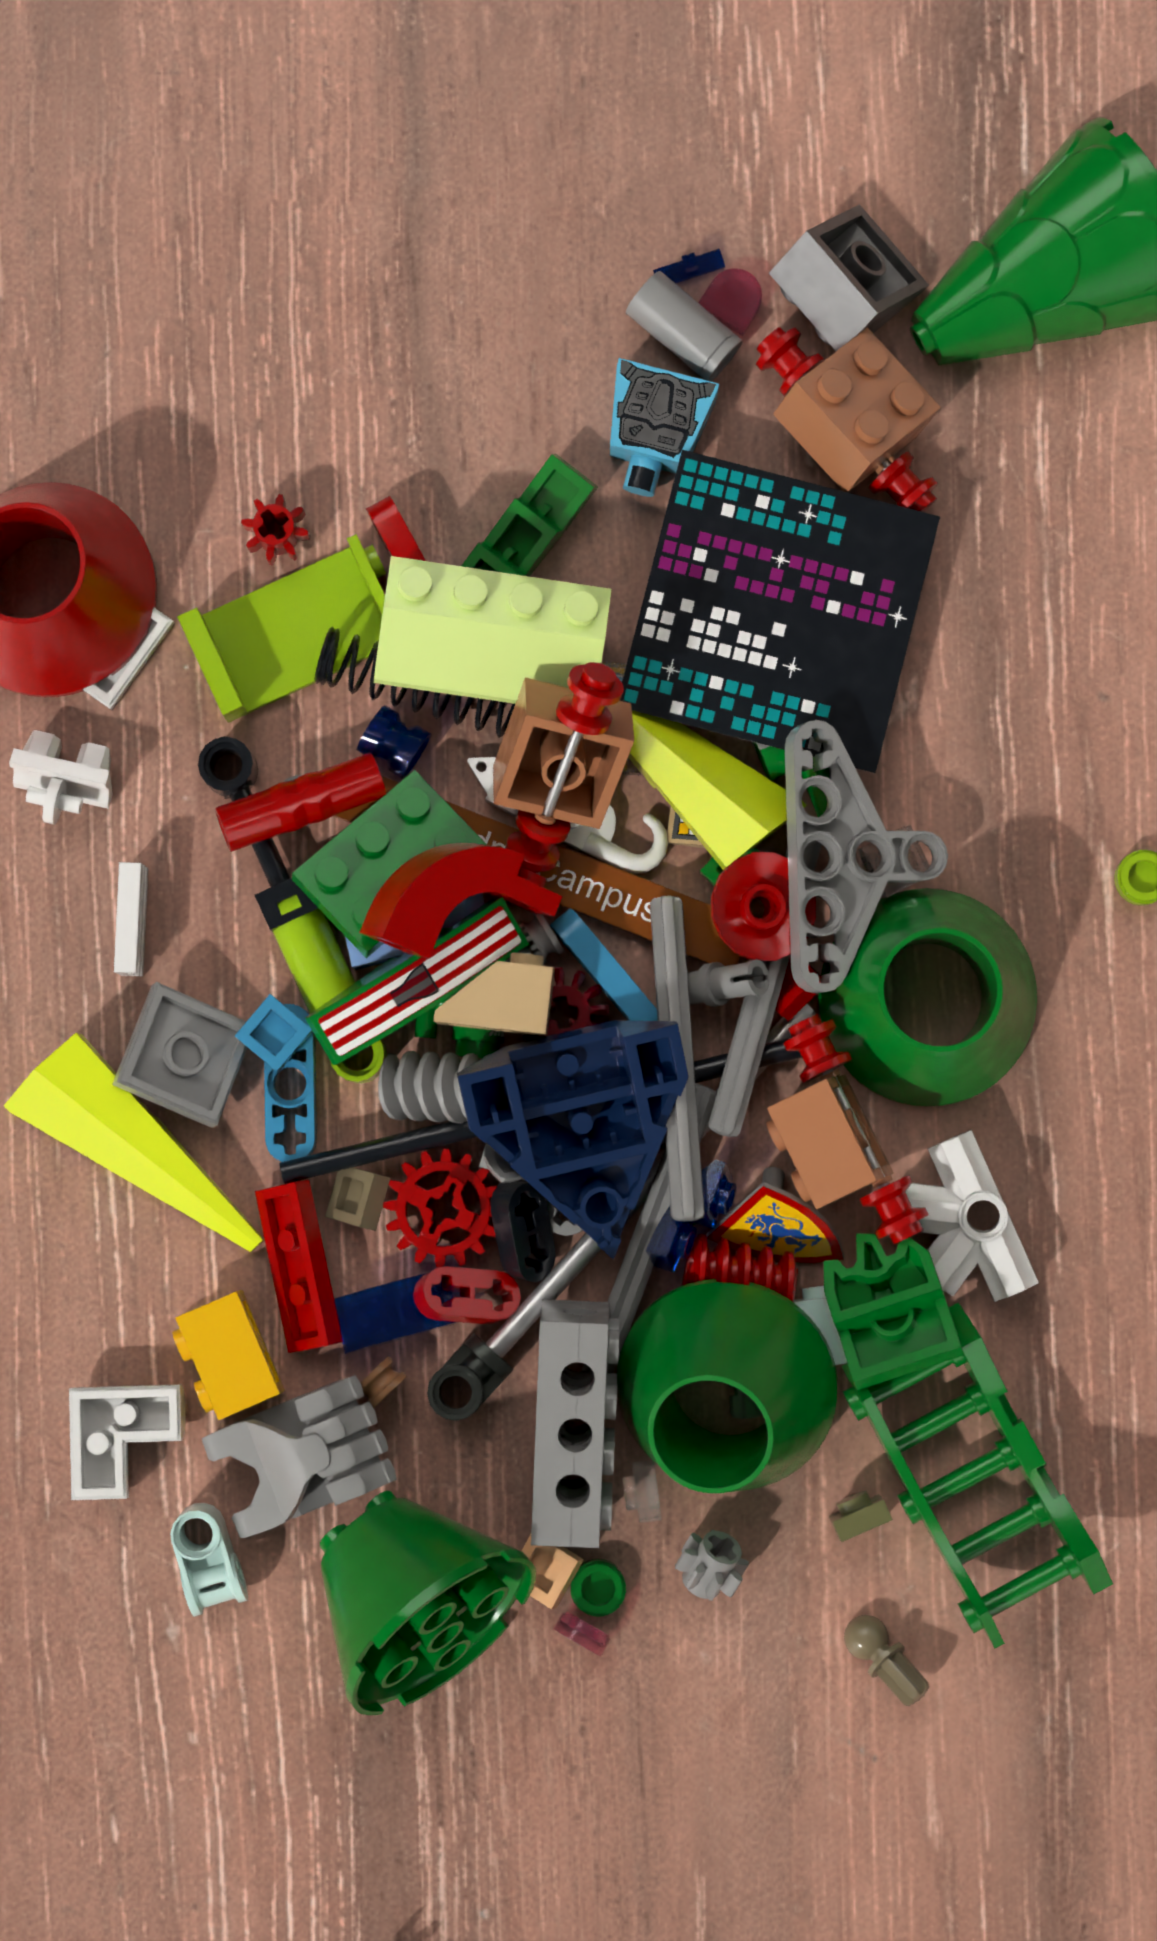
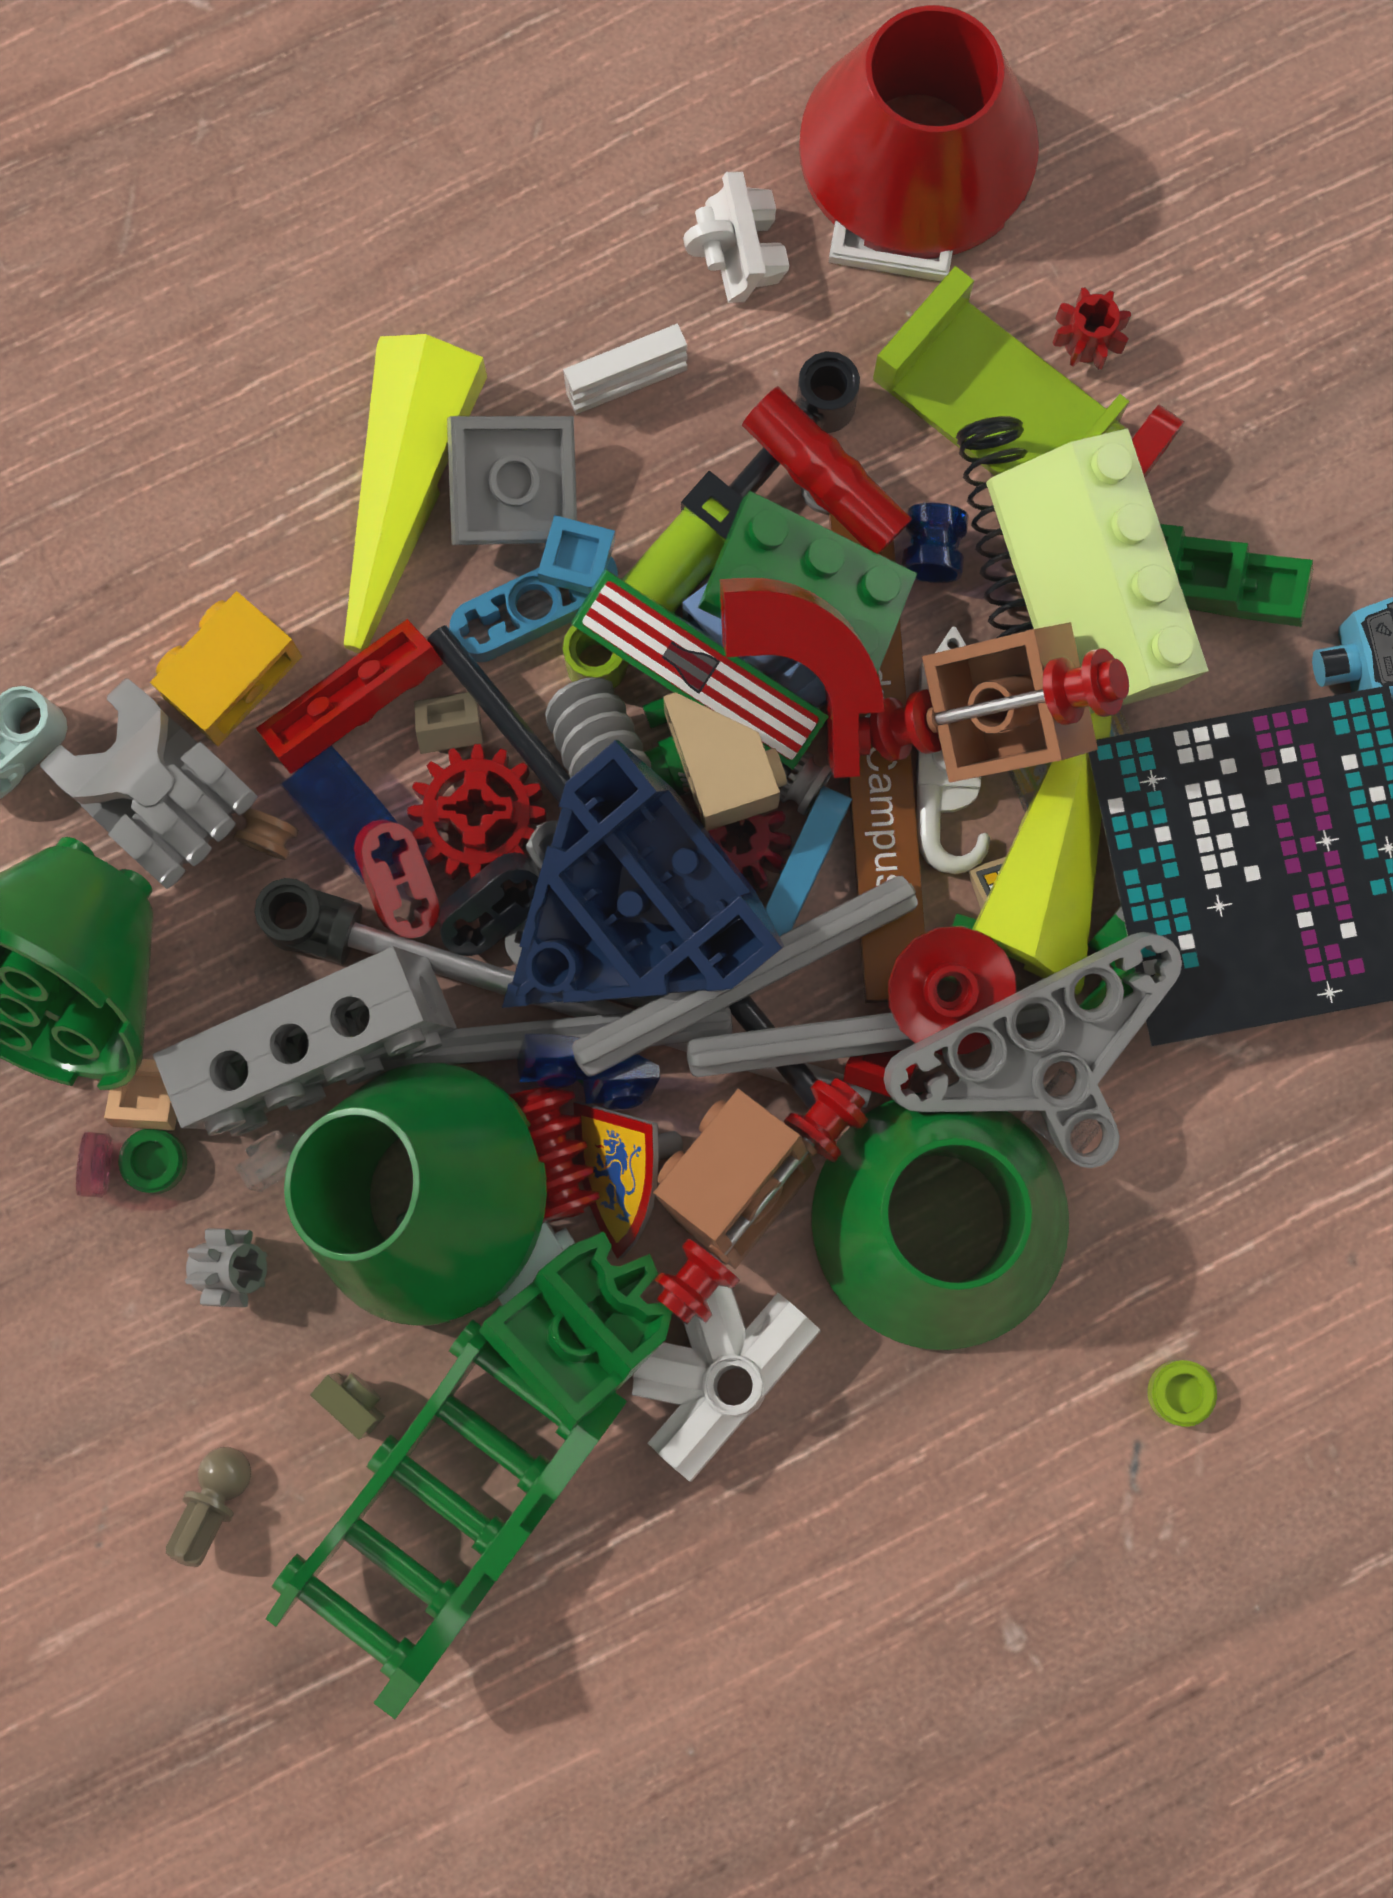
camera: 60 degrees right, 5 degrees down
(104, 1424) = (97, 578): white brick -> none
(718, 983) = (847, 984): light grey pin -> none

